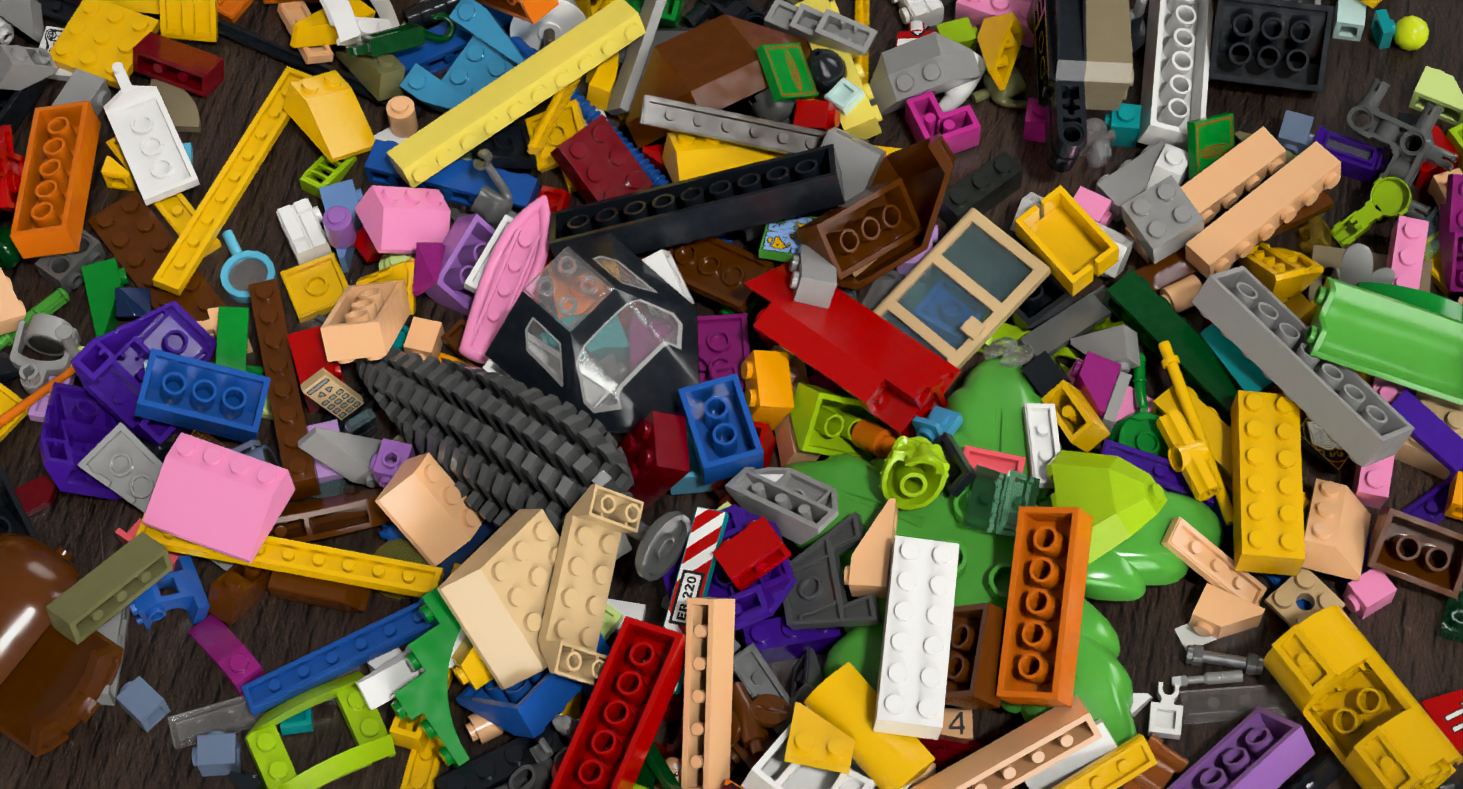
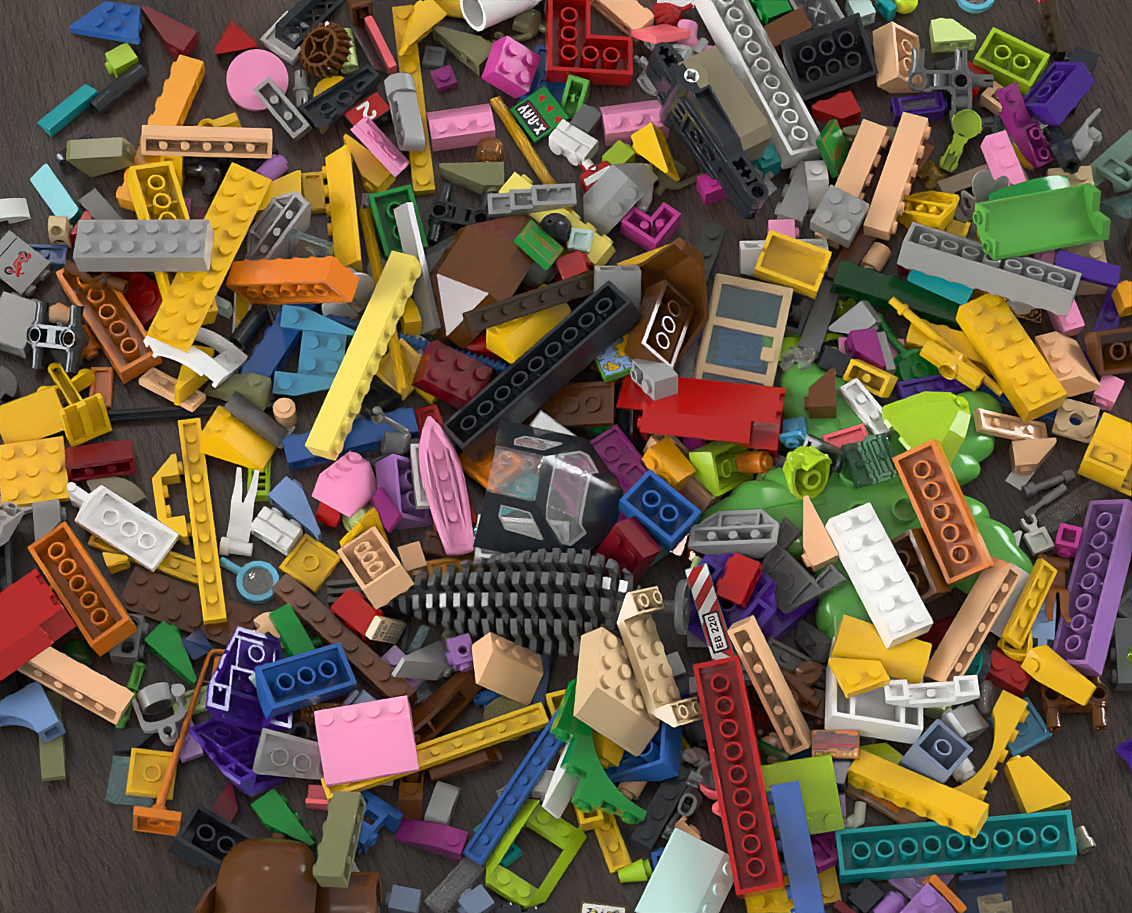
camera: 35 degrees left, 5 degrees up
(81, 528) = (278, 818): none -> green slope
(236, 115) = (168, 475): none -> yellow slope
(262, 214) = (240, 519): none -> white flag
(263, 622) = (442, 803): none -> light grey beam
(339, 227) = (308, 514): medium lavender brick -> none
(363, 103) = (256, 419): none -> dark grey tile
(401, 38) = (253, 359): dark green piece -> none
(998, 402) = (822, 397): none -> reddish brown slope
(1198, 736) = (1067, 540): none -> dark pink brick
(1249, 109) = (840, 107): none -> red slope
(1295, 132) = (877, 110): sand blue brick -> none
(1350, 84) = (894, 58): none -> light nougat slope

